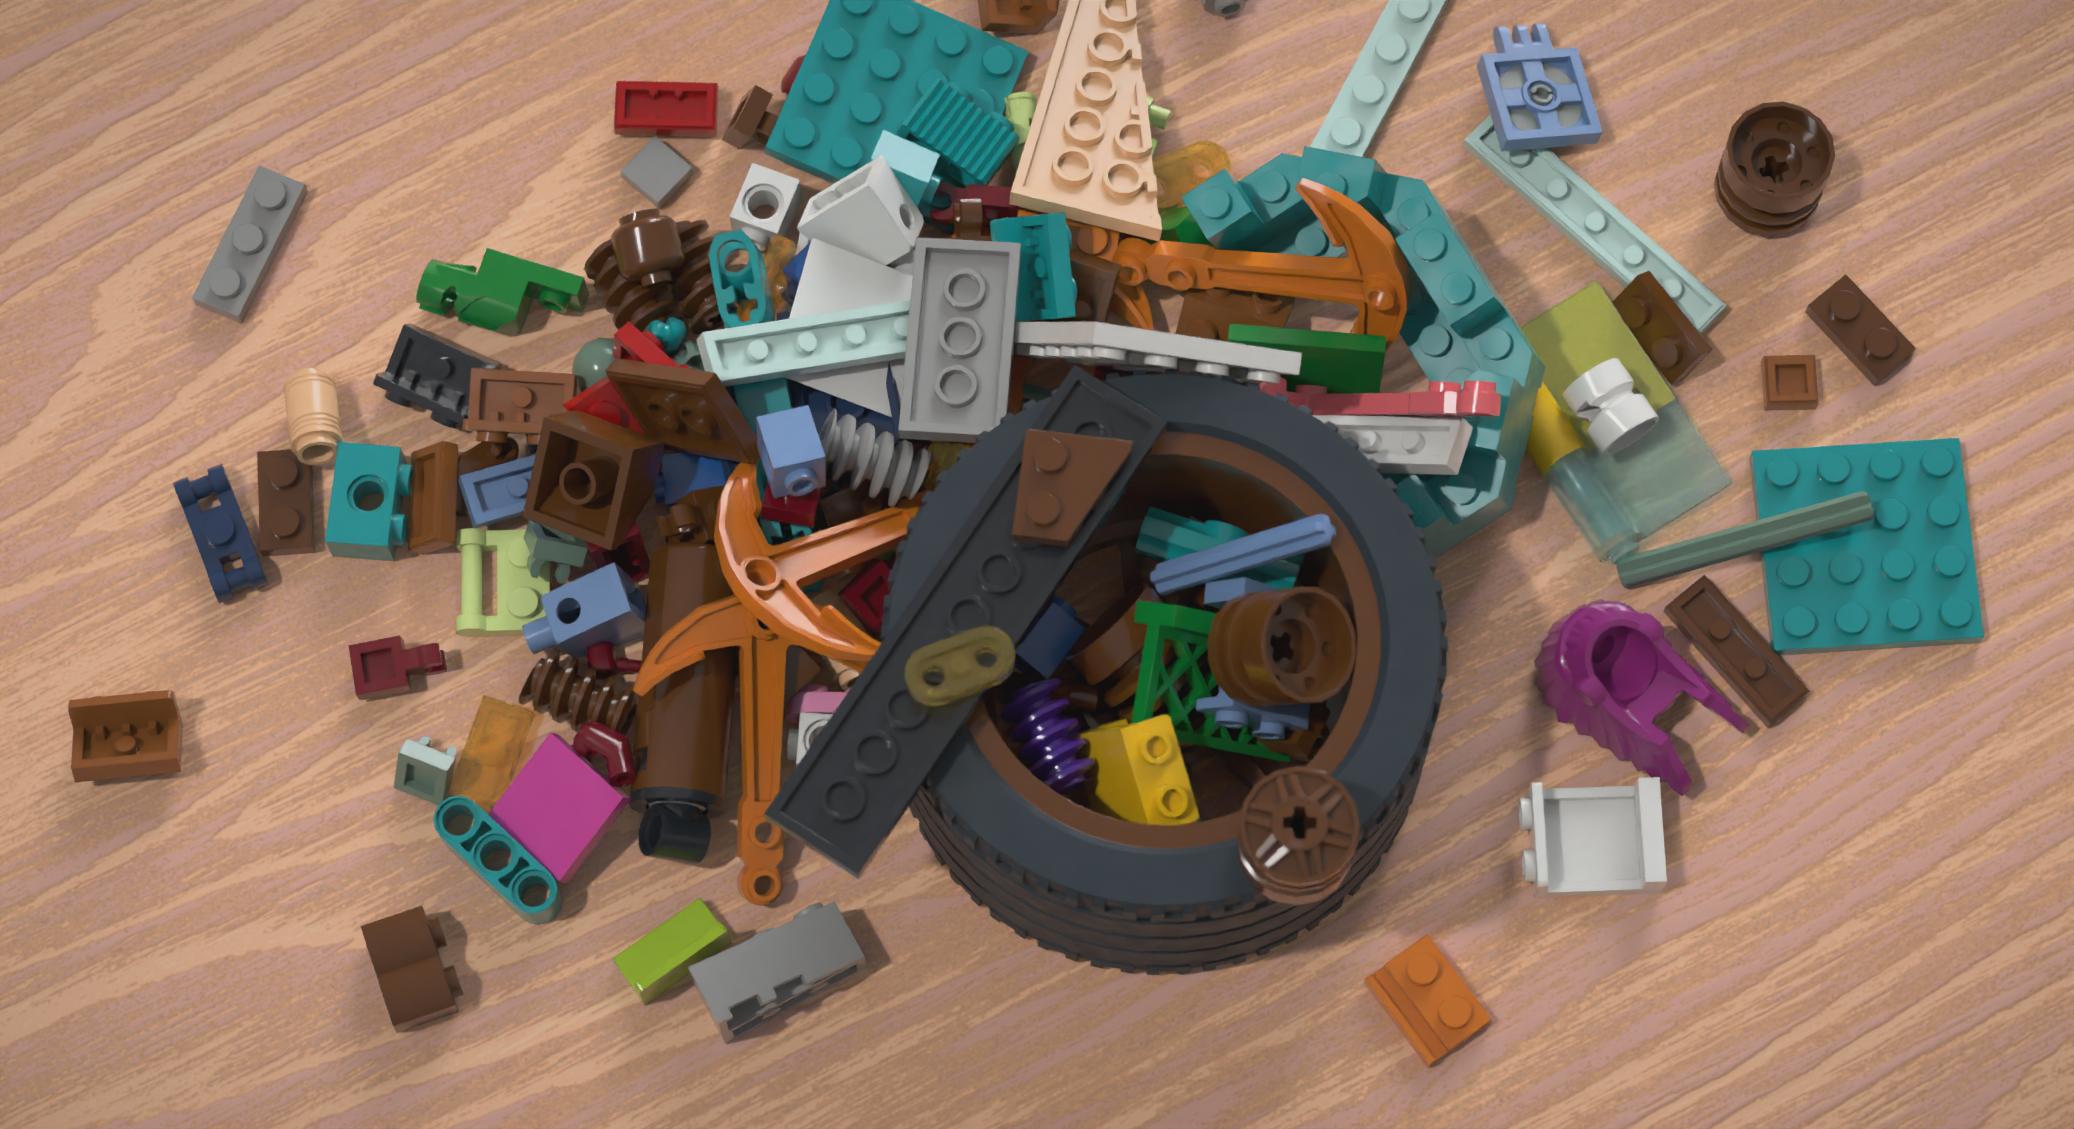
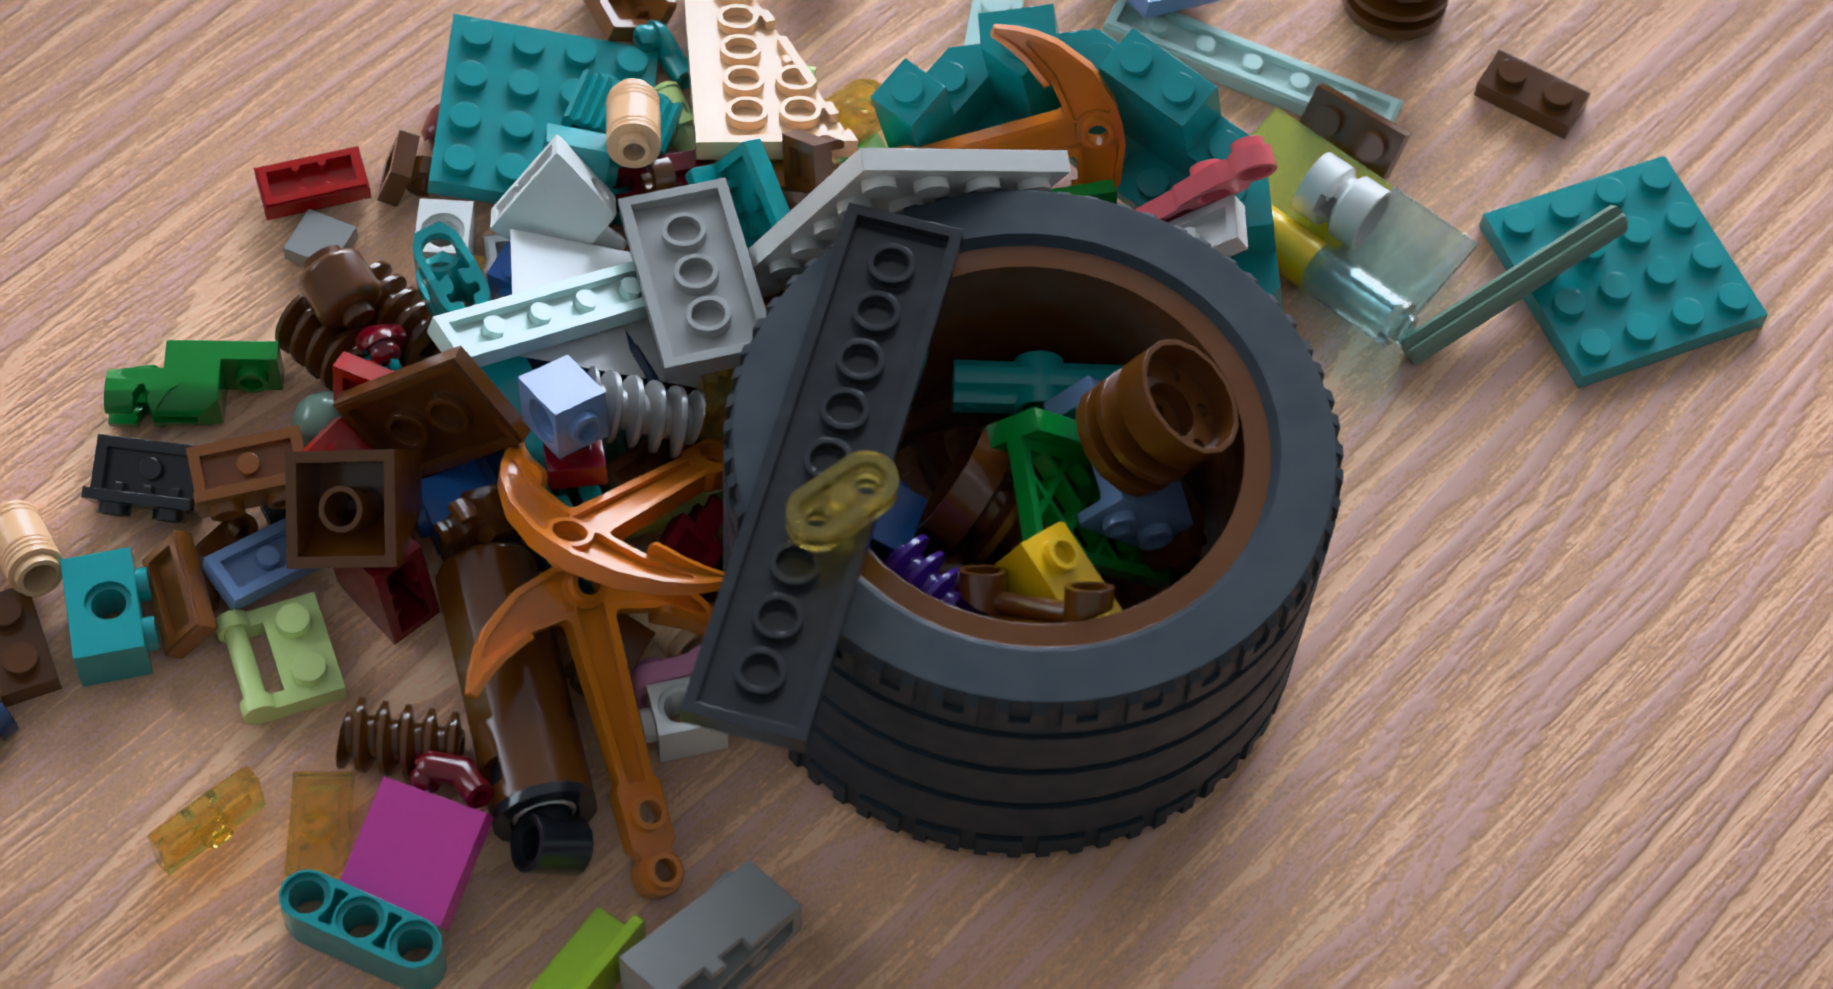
camera: 25 degrees left, 15 degrees down
(385, 666) = (177, 773): dark red plate -> none
(398, 720) = (207, 820): none -> clear yellow plate
(425, 770) = (251, 864): sand green tile -> none
(553, 545) = (327, 598): sand green tile -> none
(589, 611) = (388, 654): medium blue torso -> none
(603, 657) = (413, 694): dark red hand -> none
(666, 309) = (382, 342): none -> dark red arm
(957, 158) = (633, 123): none -> light nougat head
(1030, 38) = (670, 56): none -> teal arm
(1062, 482) = (880, 307): reddish brown wing -> none
(1083, 754) = (986, 591): none -> reddish brown bar
(1107, 242) = (808, 159): none -> reddish brown tile
(1243, 554) = (1080, 352): medium blue axle -> none
(1289, 867) = (1261, 569): reddish brown wheel -> none
(1427, 1000) = (1391, 790): orange plate -> none
(1594, 840) = (1493, 591): white panel -> none
(1614, 677) = (1448, 439): magenta piece -> none
(1736, 651) = (1545, 390): reddish brown tile -> none
(1789, 382) = (1488, 152): dark orange tile -> none

